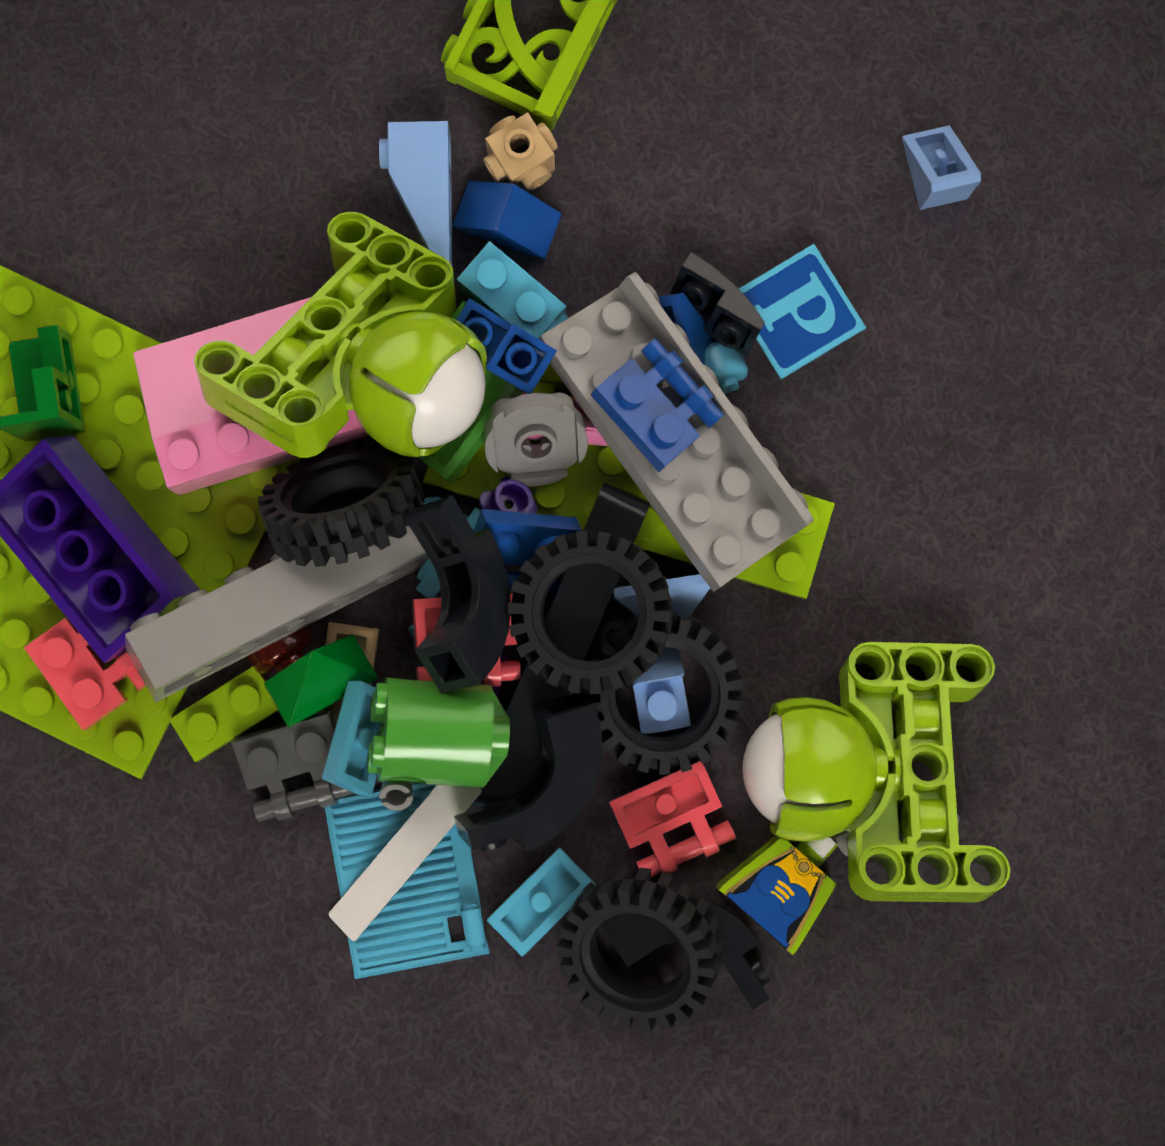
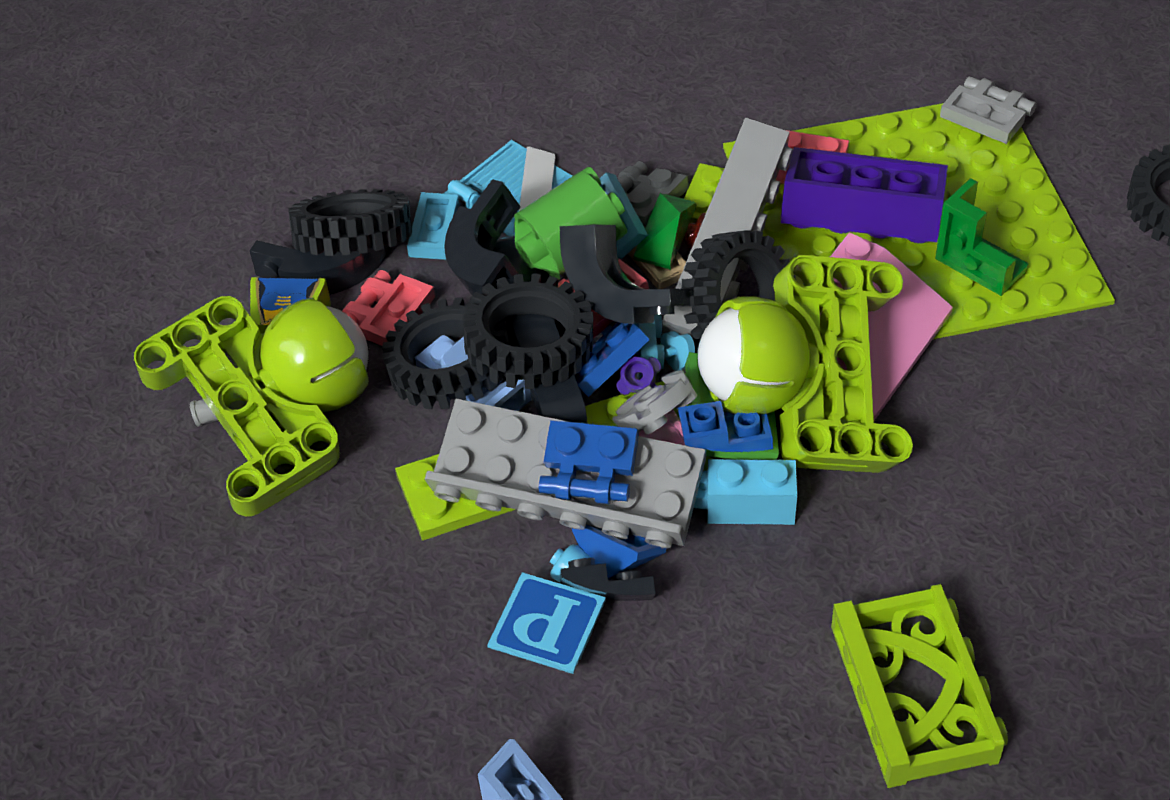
camera: 150 degrees right, 35 degrees down
(421, 174) = (877, 516): light blue slope -> none
(507, 217) = (803, 542): blue slope -> none
(523, 169) = (833, 575): tan brick -> none

